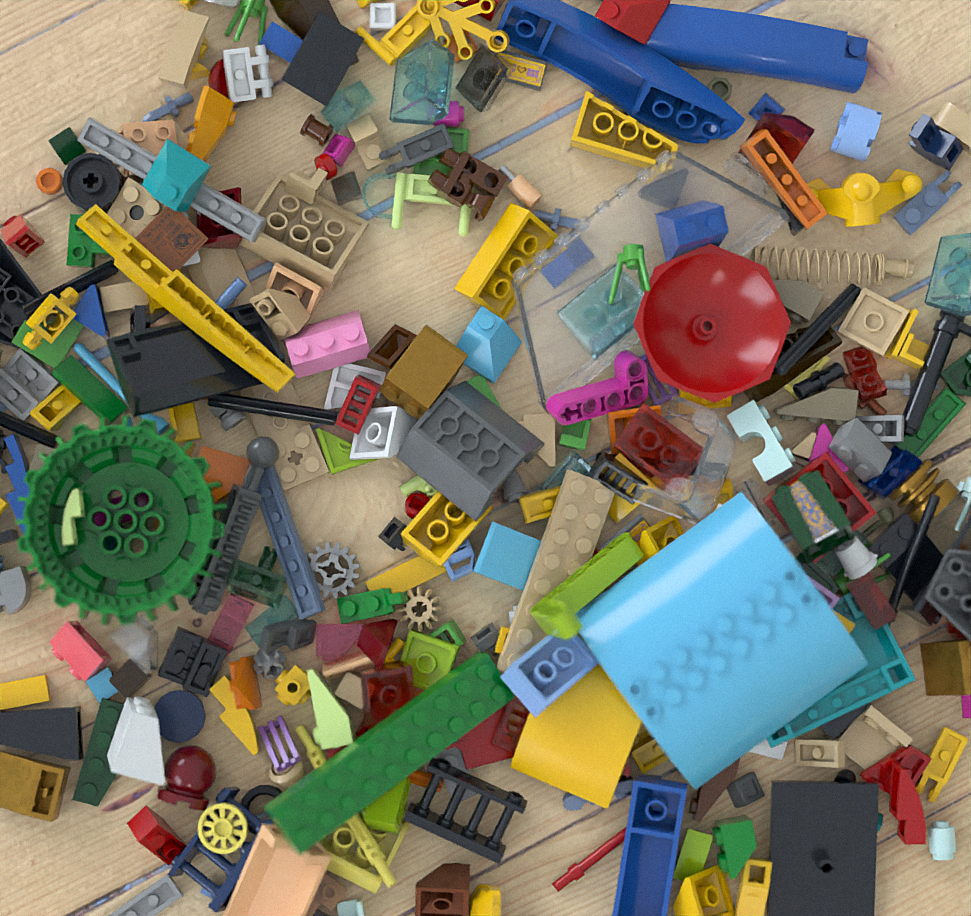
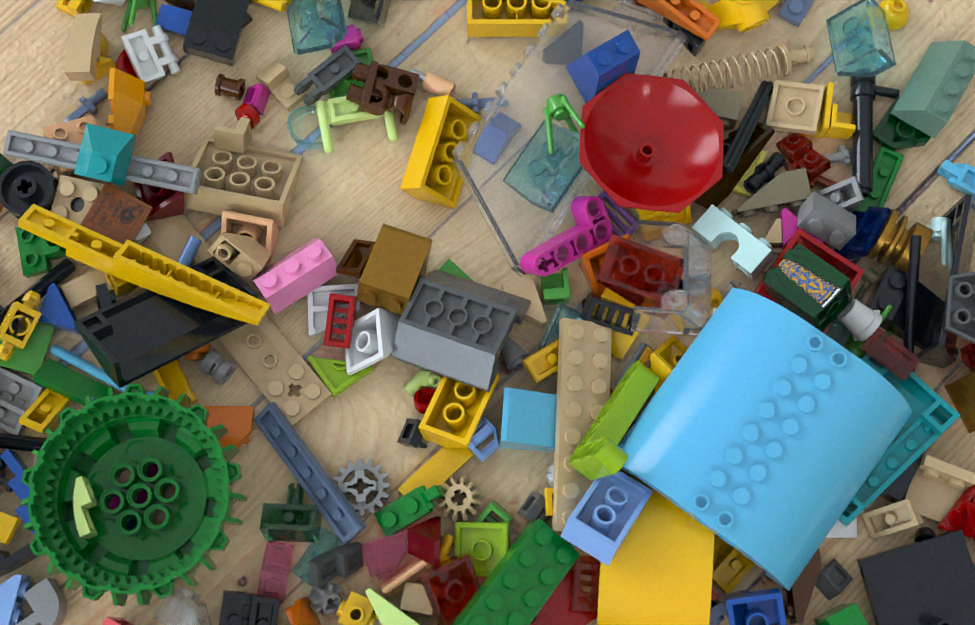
camera: 20 degrees left, 10 degrees down
(242, 507) = (254, 462): dark grey gear -> none
(274, 408) = (258, 348): black axle -> none
(346, 188) = (273, 130): clear smoke slope -> none
(347, 105) = (252, 58): clear light blue slope -> none
(488, 344) = (449, 228): medium azure slope -> none

